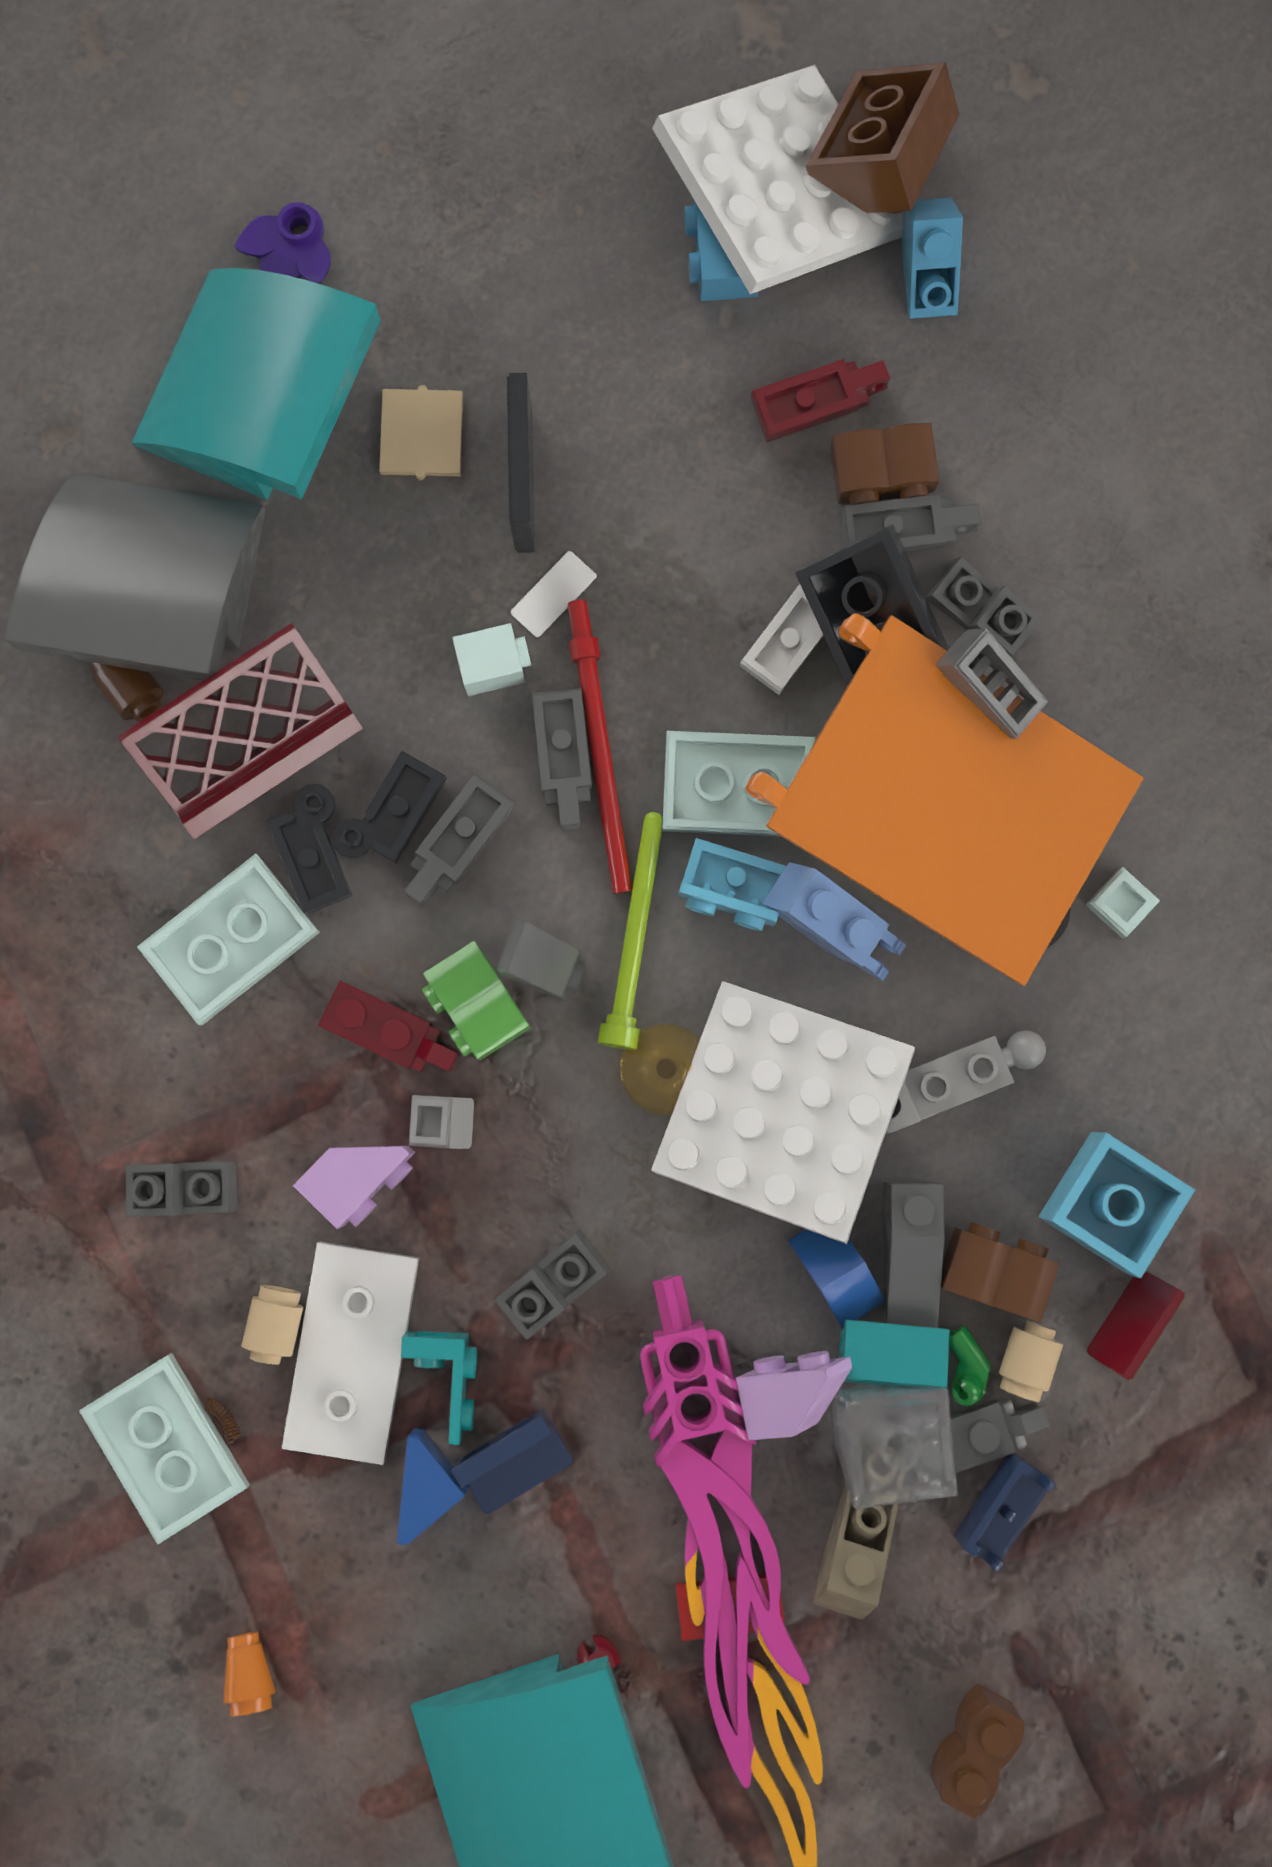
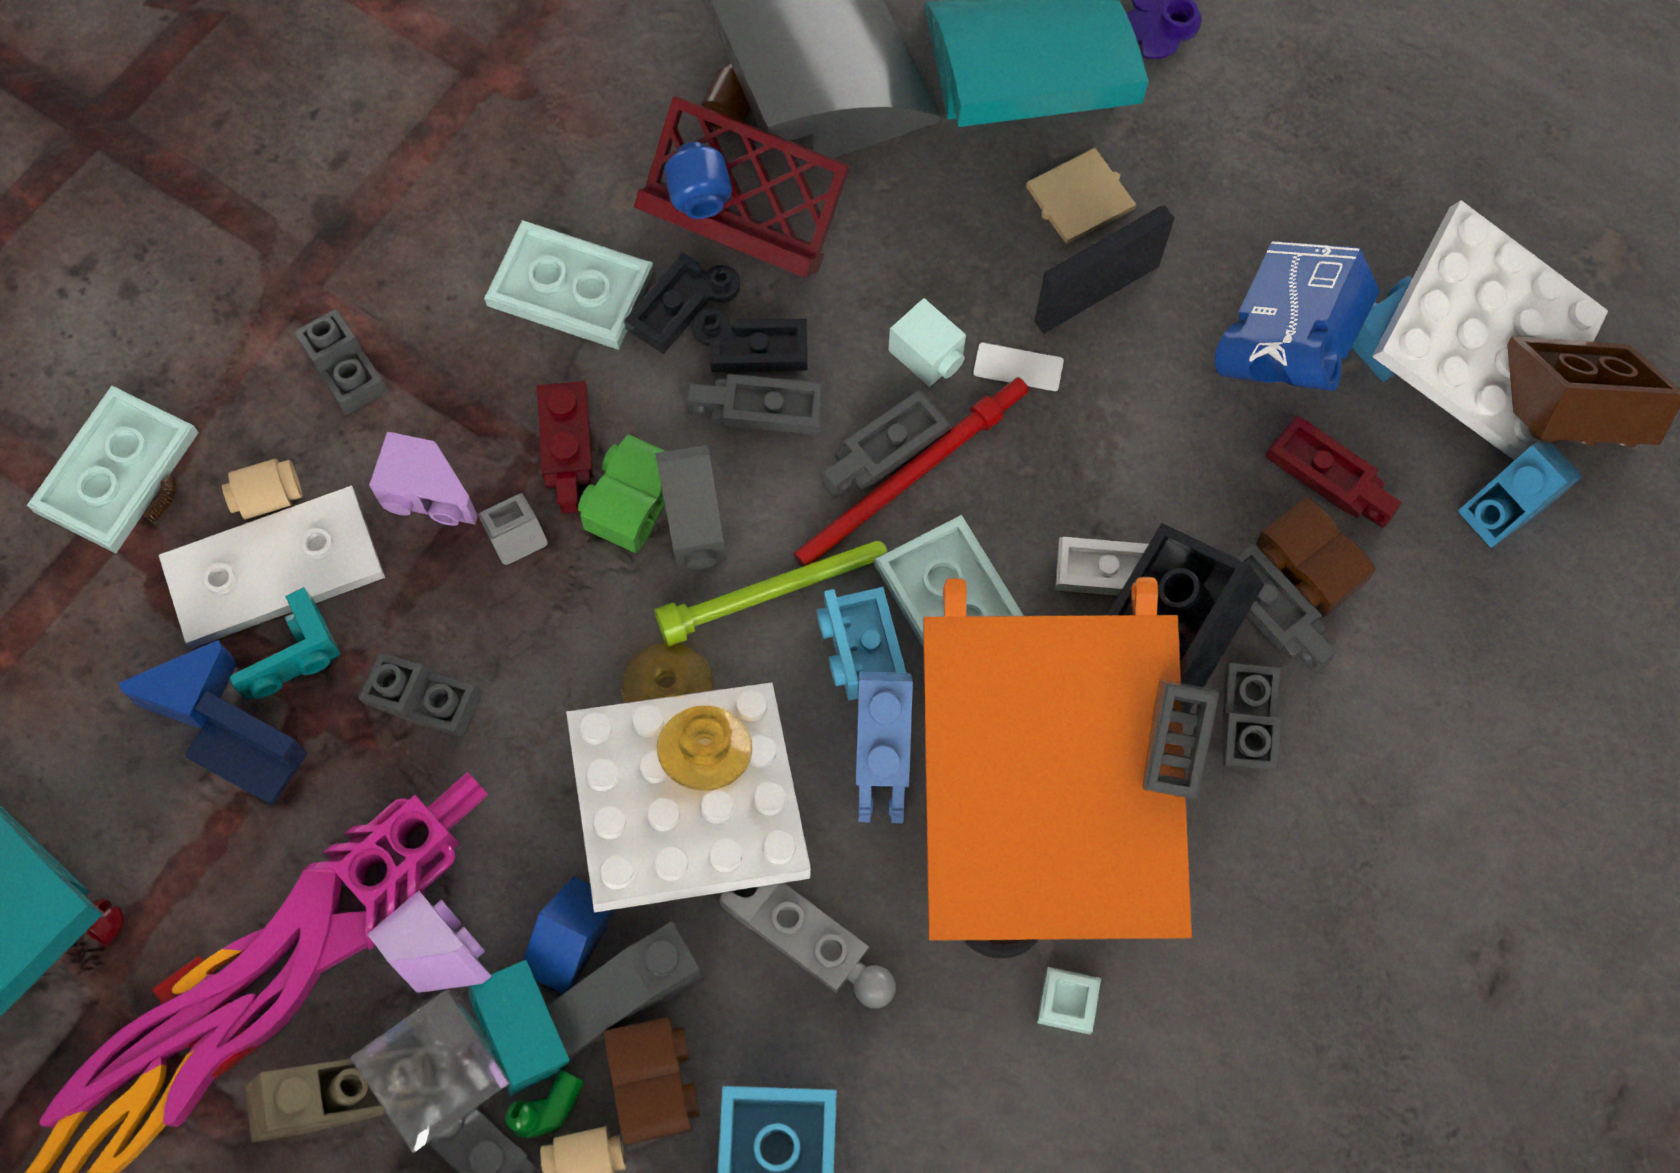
camera: 60 degrees right, 15 degrees down
(217, 768) = (697, 180): none -> blue head
(673, 328) = (1299, 316): none -> blue piece
(761, 1095) = (704, 765): none -> clear yellow piece

